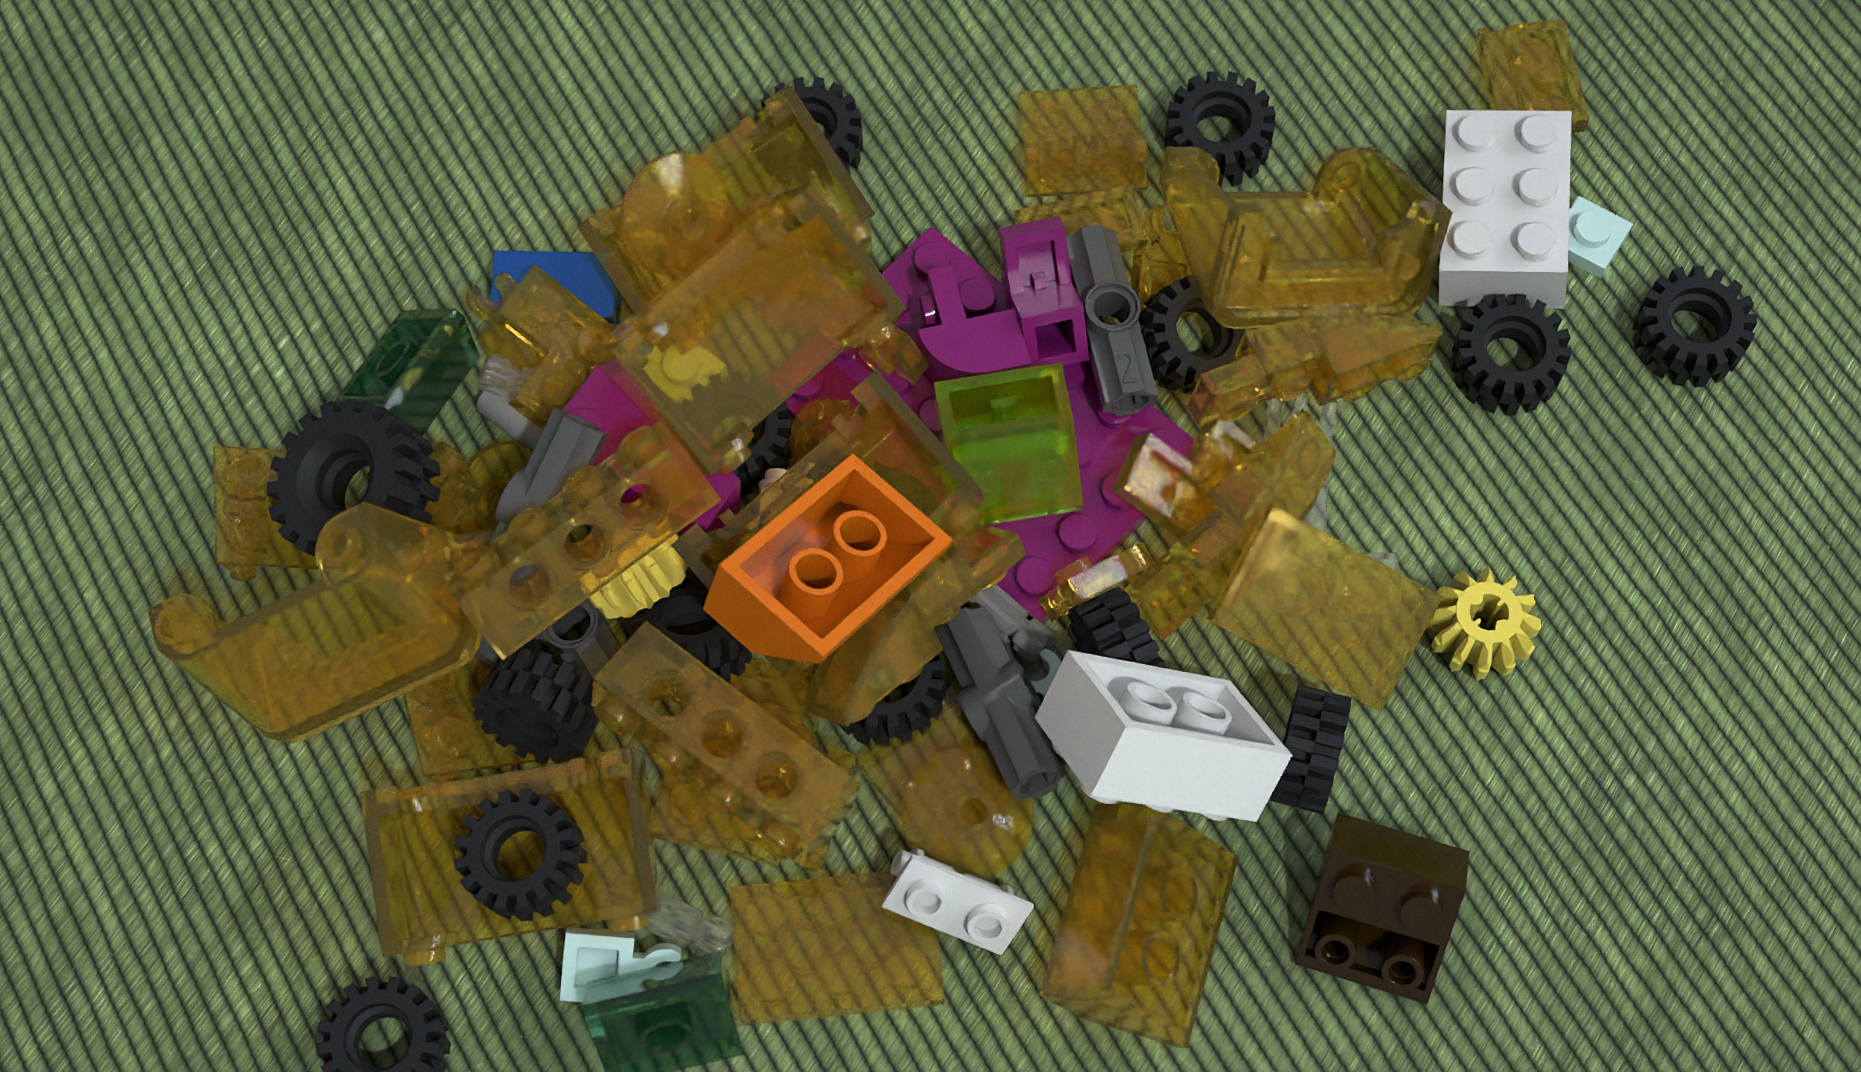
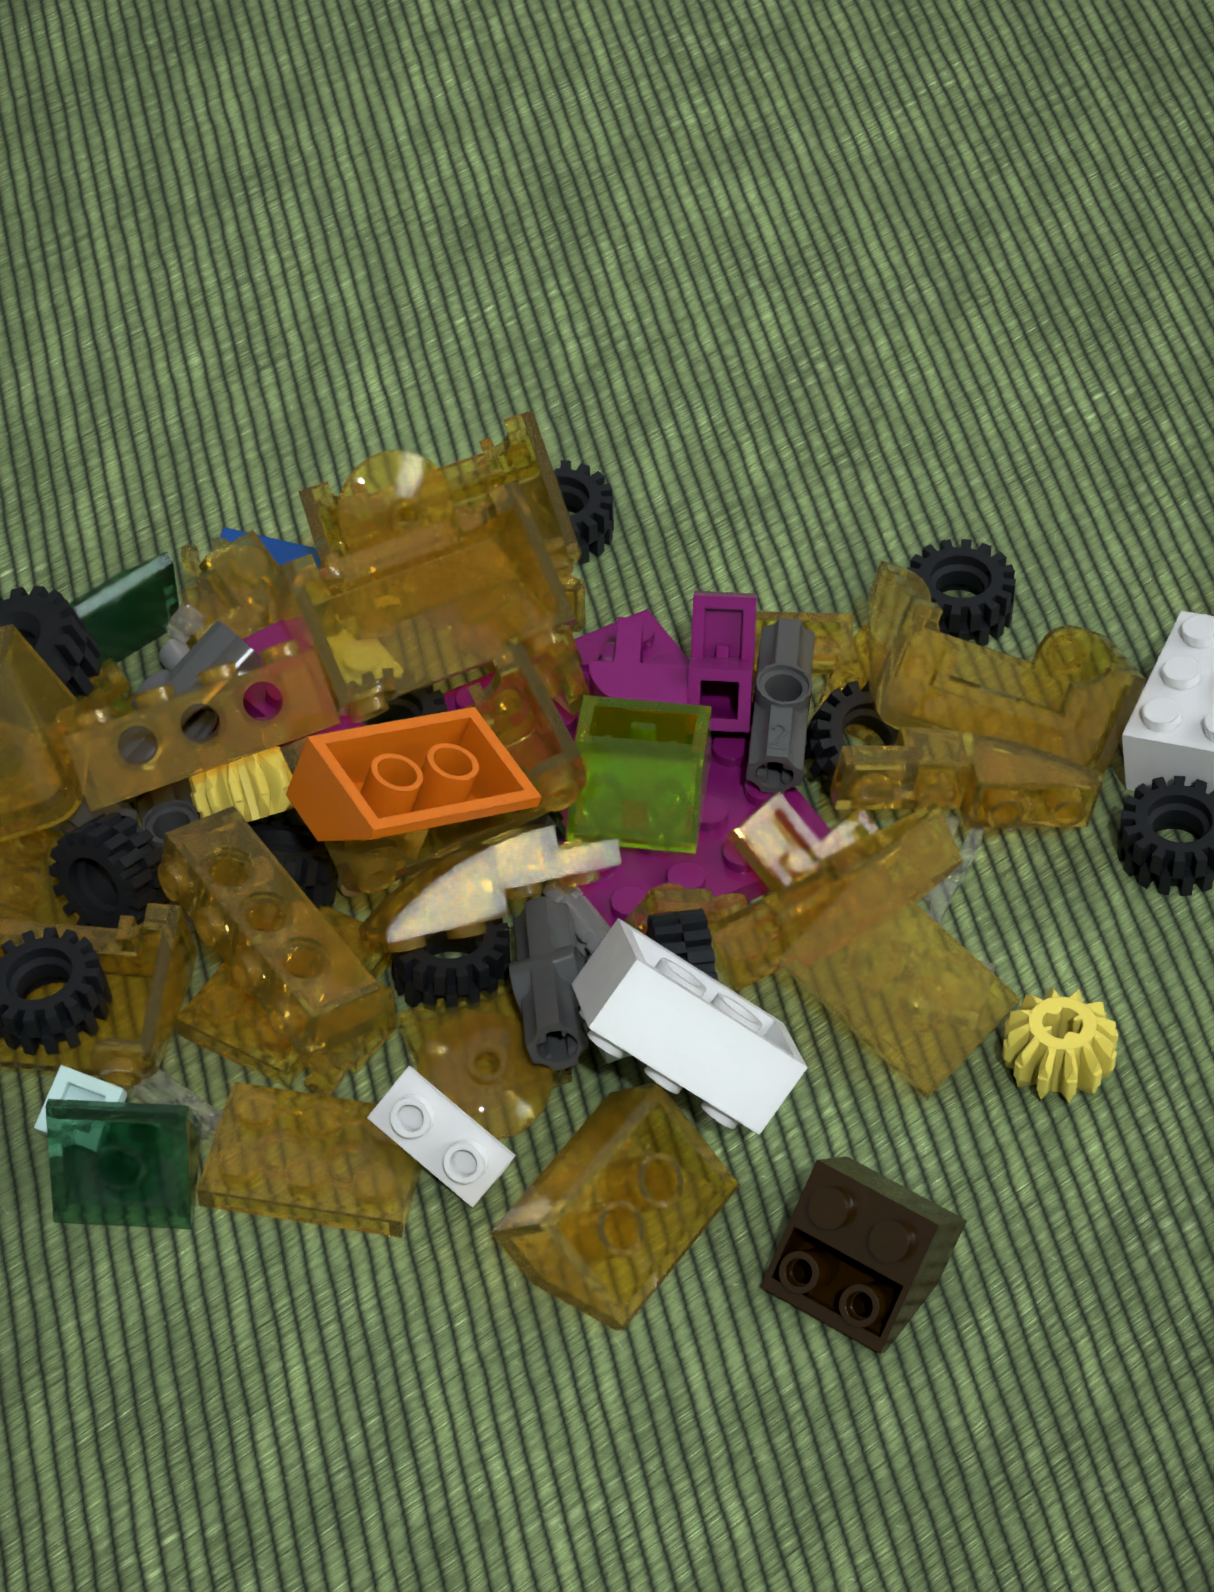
camera: 15 degrees right, 20 degrees down
(1082, 140) = (819, 573): clear yellow hinge -> none
(1315, 741) = (839, 1093): black tyre -> none

